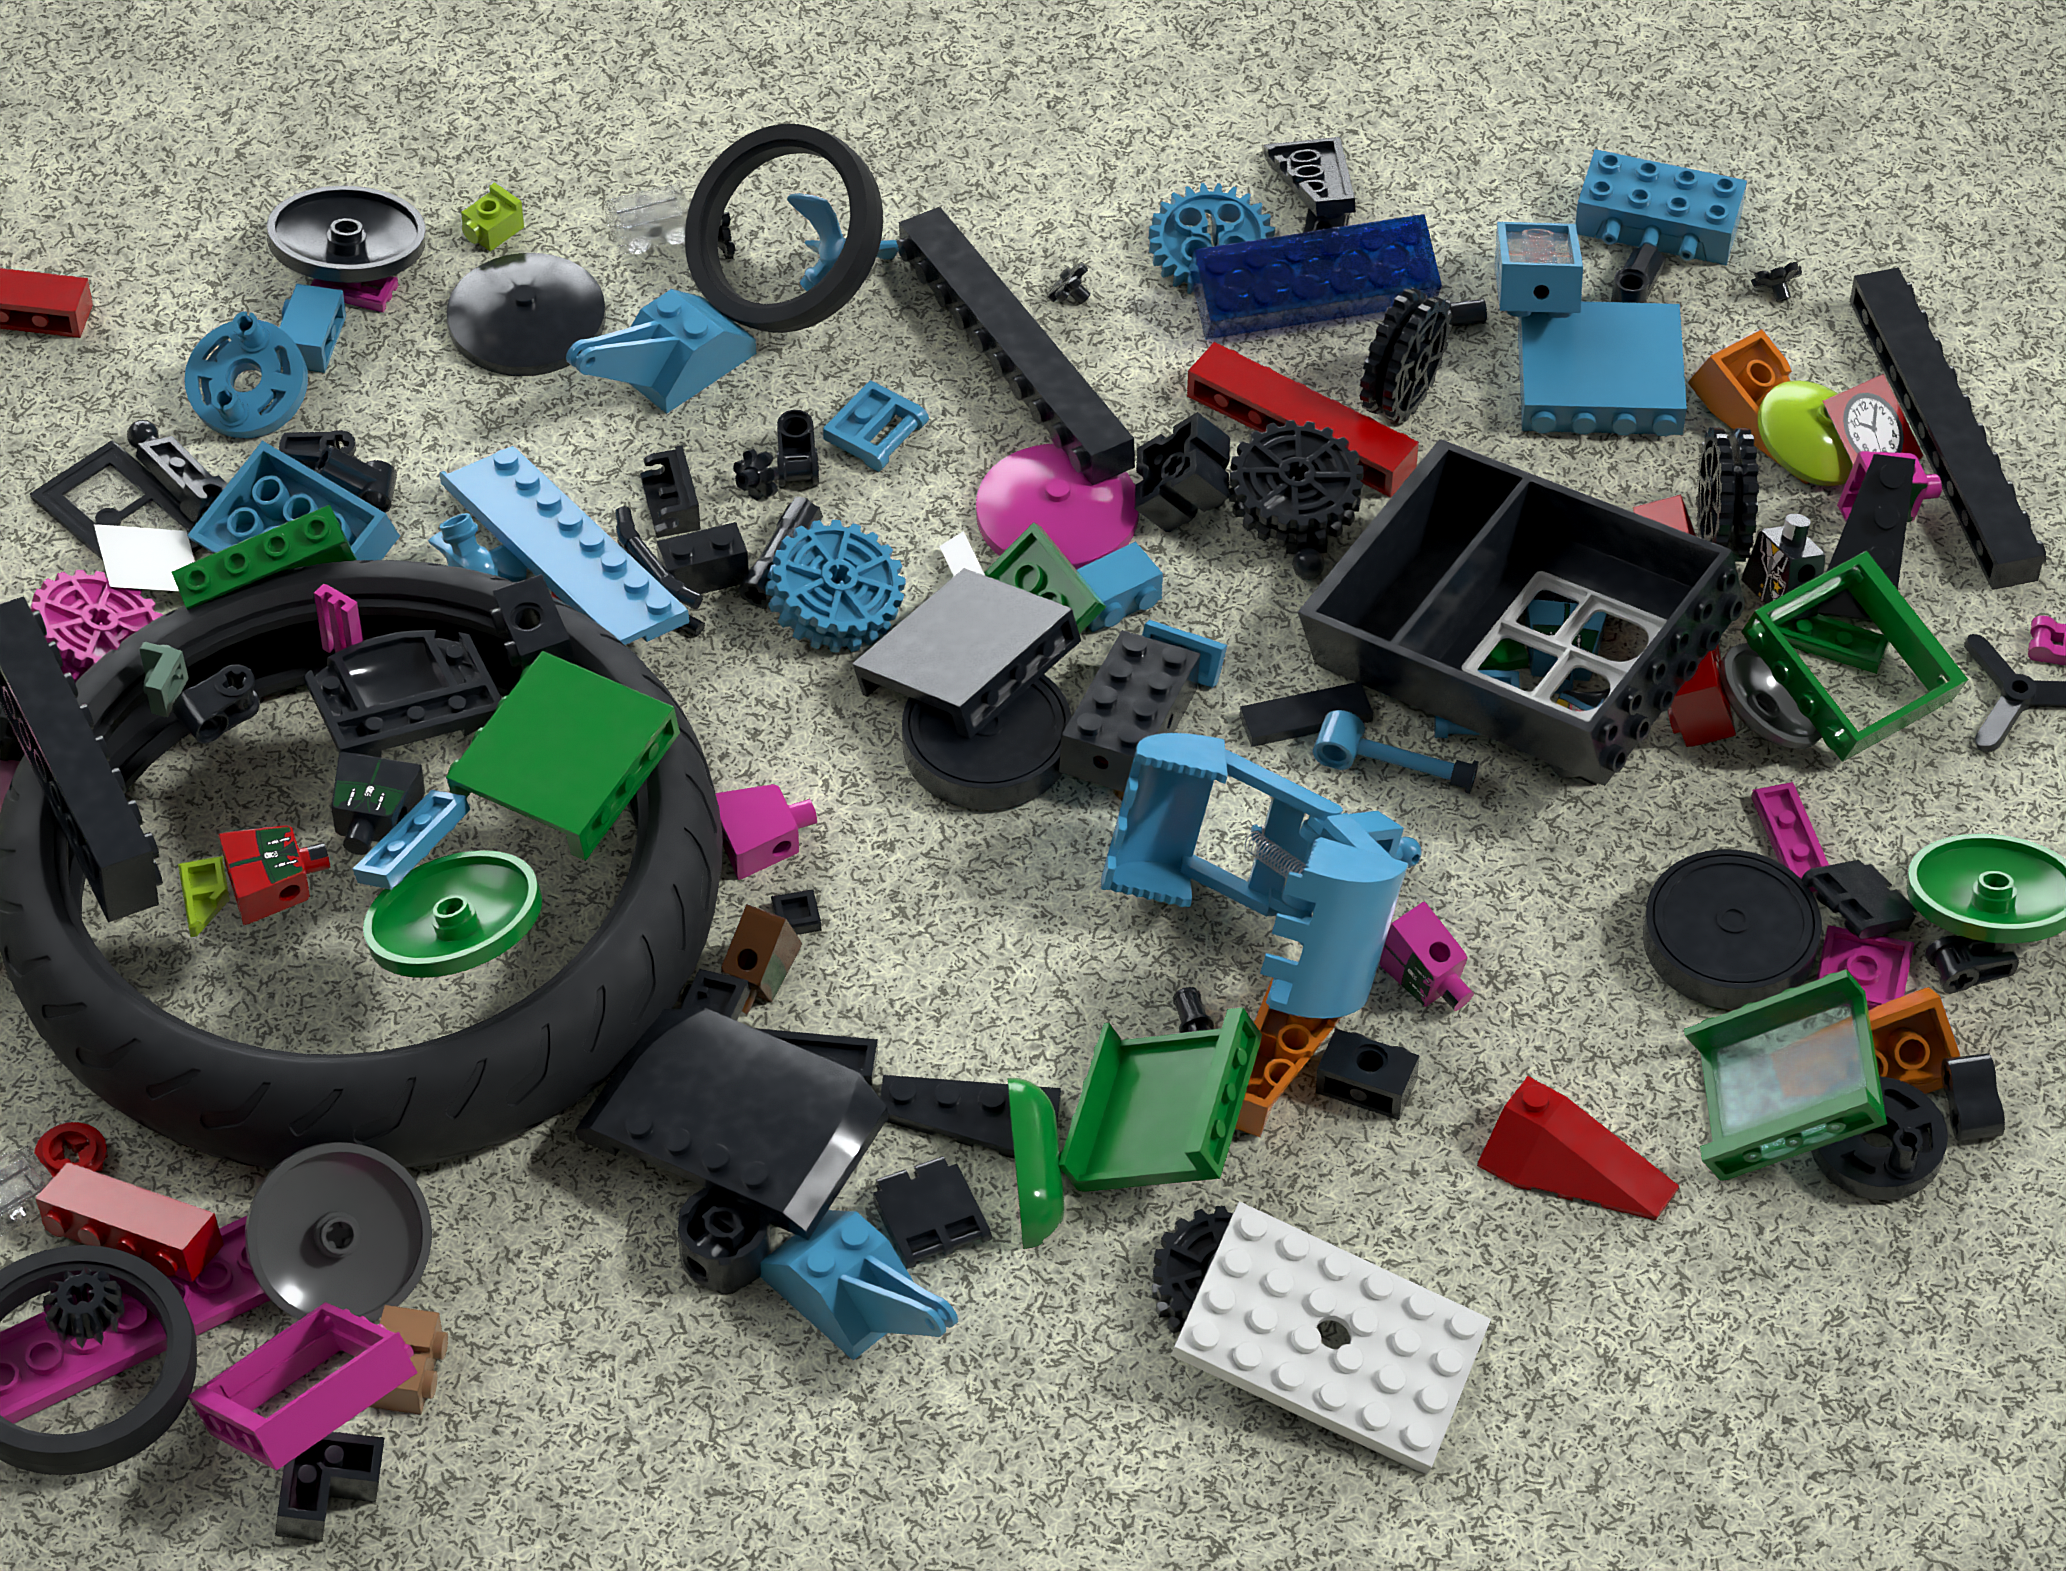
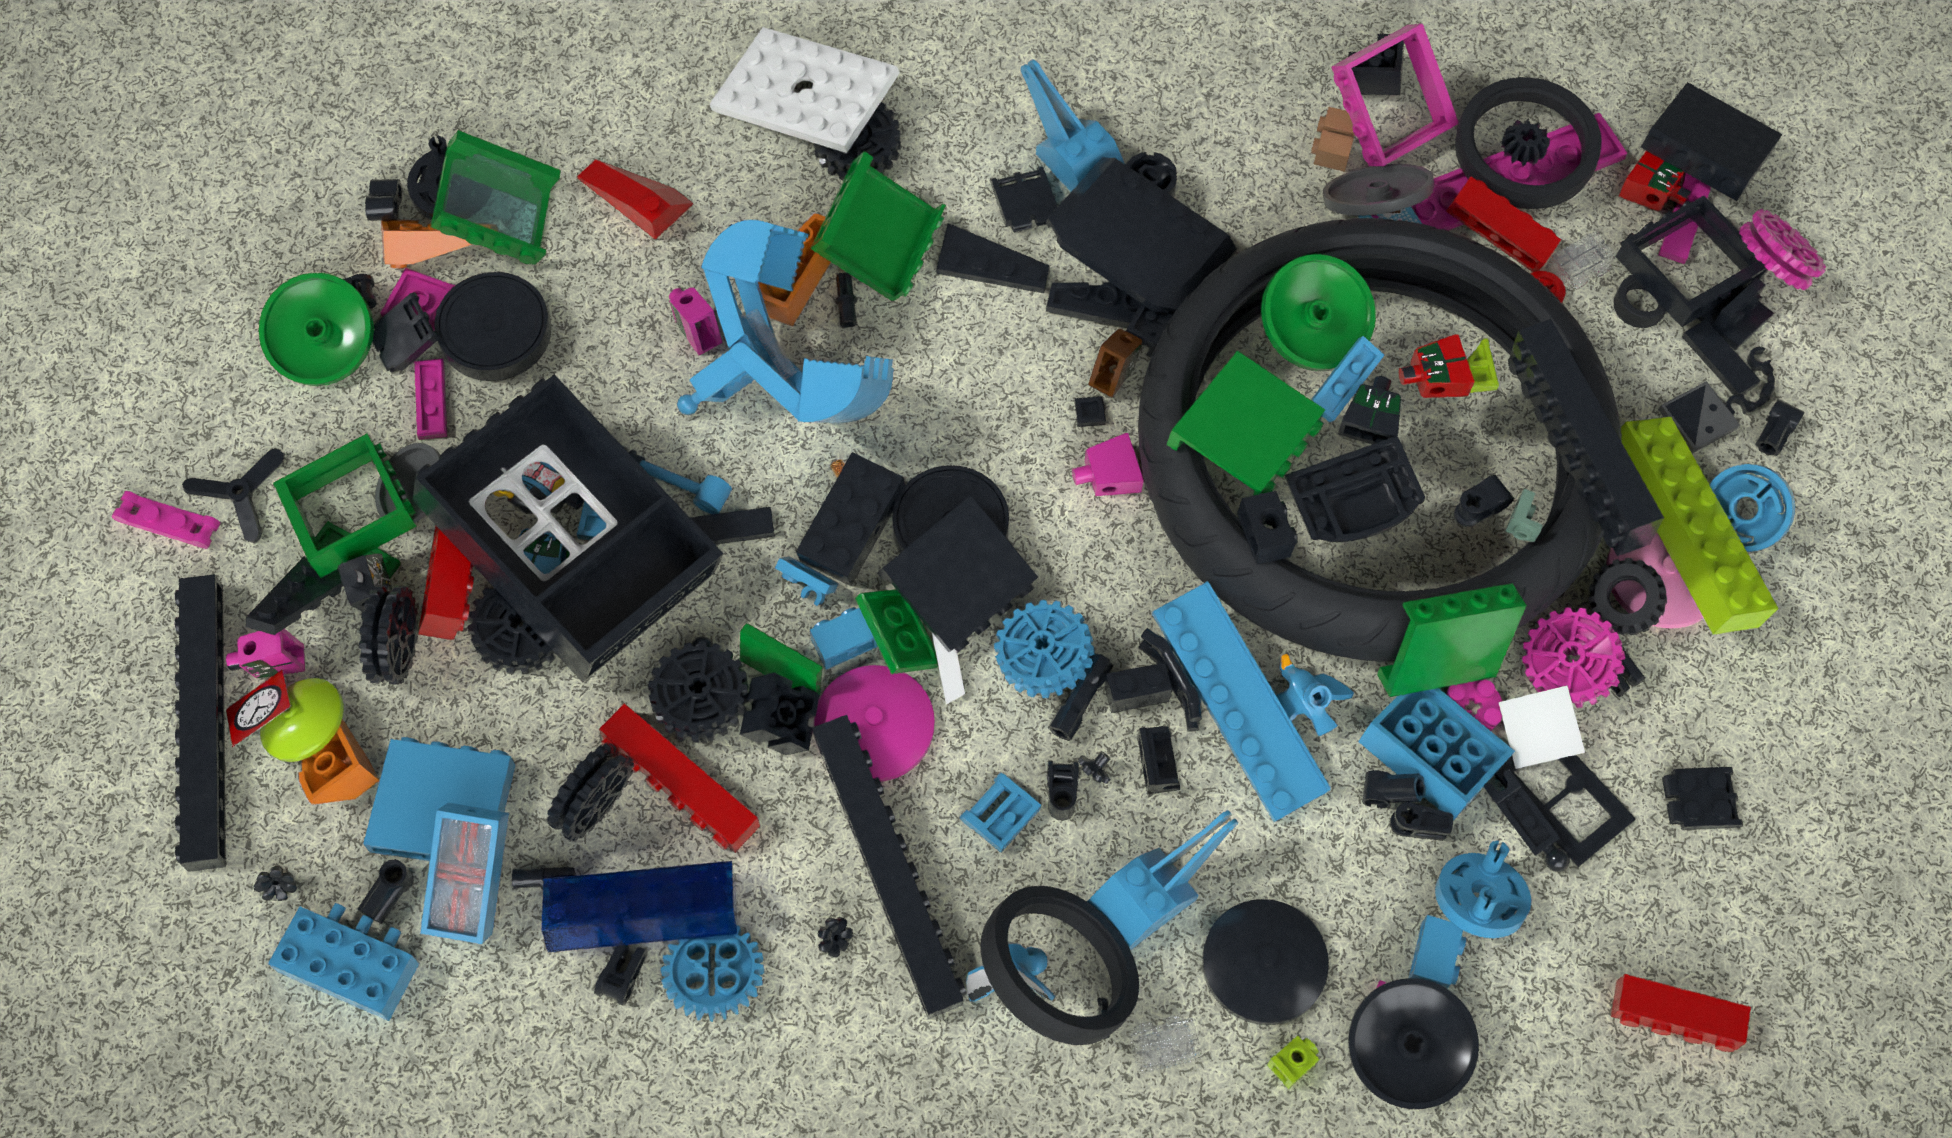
camera: 175 degrees left, 15 degrees up
(337, 624) = (1407, 532): dark pink tile -> none
(1035, 1161) = (958, 217): green brick -> none
(1194, 531) = (772, 656): none -> green tile
(1315, 173) = (614, 1027): black wing -> none

